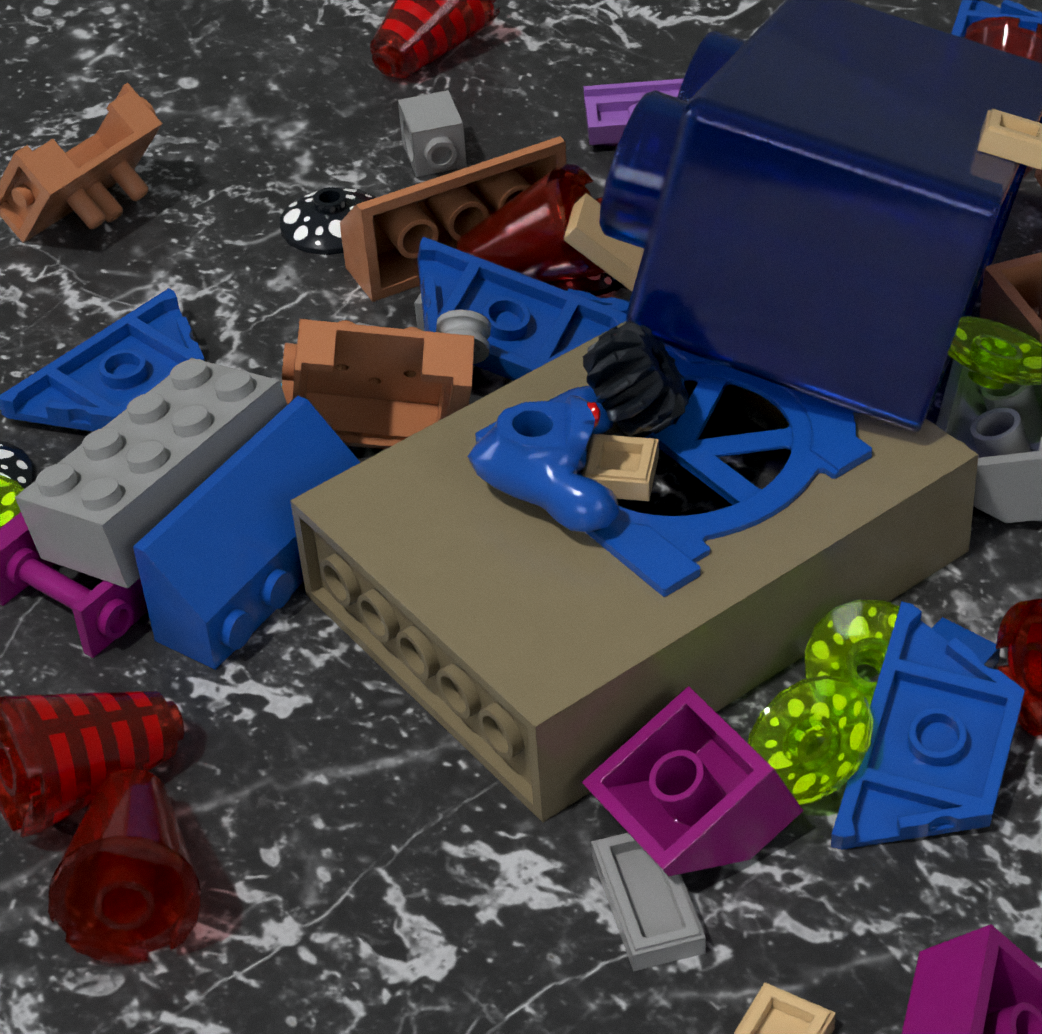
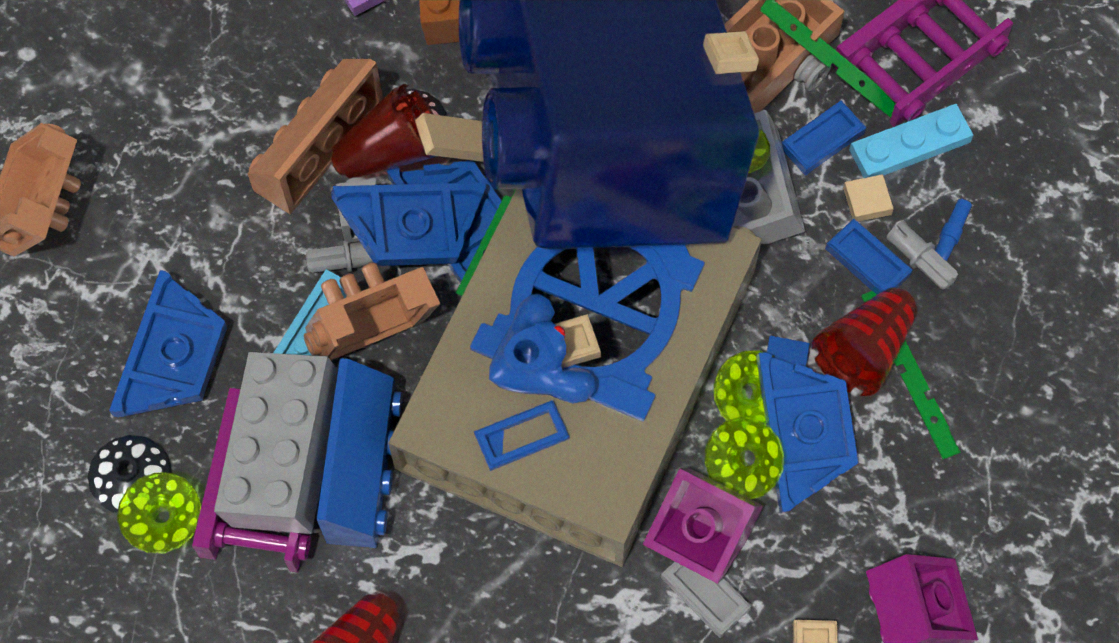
camera: 30 degrees left, 25 degrees up
(314, 219) = (222, 165): black dish -> none
(432, 133) = (247, 52): light grey brick -> none
(432, 539) = (491, 437): none -> blue tile
(468, 323) = (408, 261): light grey bush -> none
(635, 380) = (561, 284): black gear -> none

